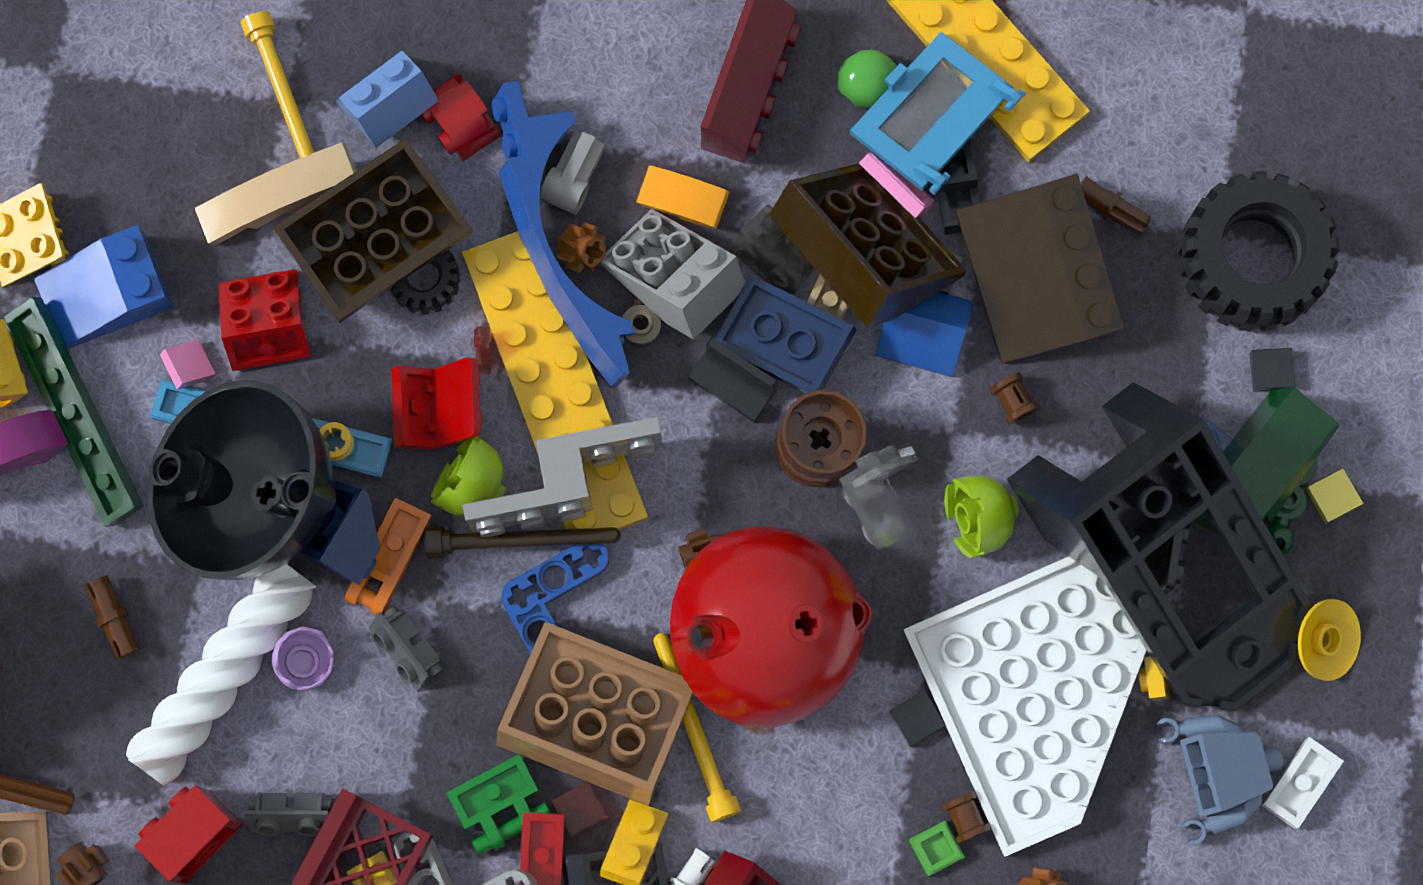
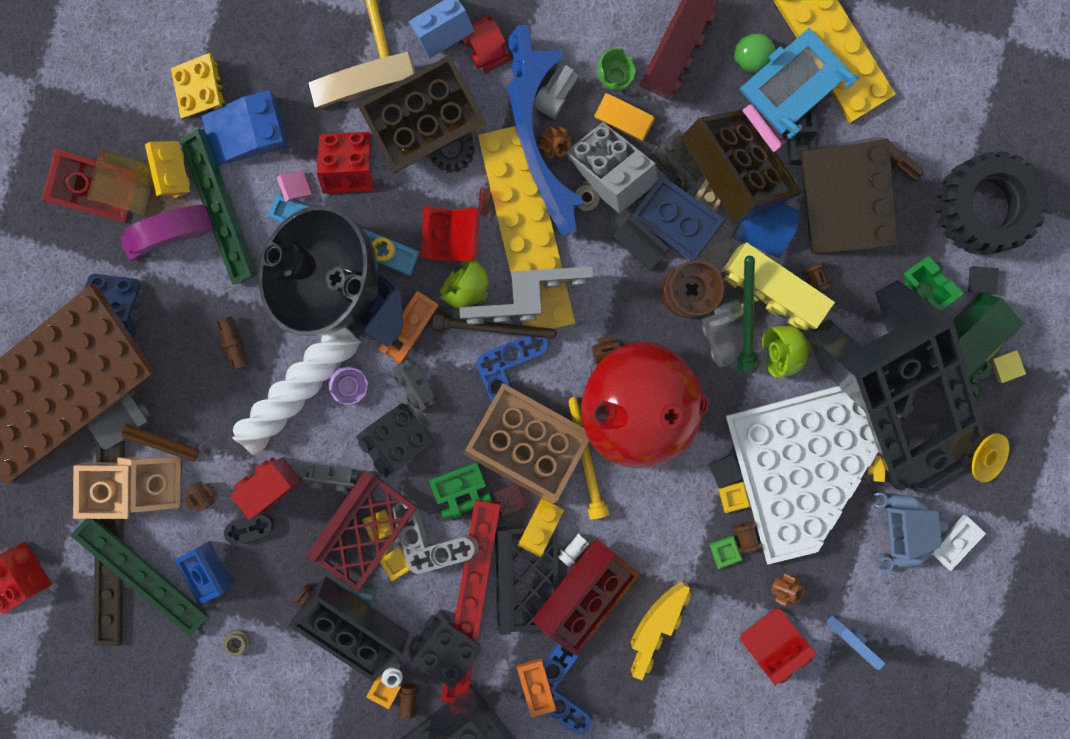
camera: 10 degrees right, 10 degrees up
(382, 736) = (394, 439): none -> black bracket
(660, 129) = (616, 69): none -> bright green hair
(924, 537) = (747, 360): none -> dark green piece
(936, 758) = (734, 497): none -> yellow tile
(947, 418) = (778, 289): none -> light yellow brick
(1188, 384) = (931, 284): none -> green cylinder

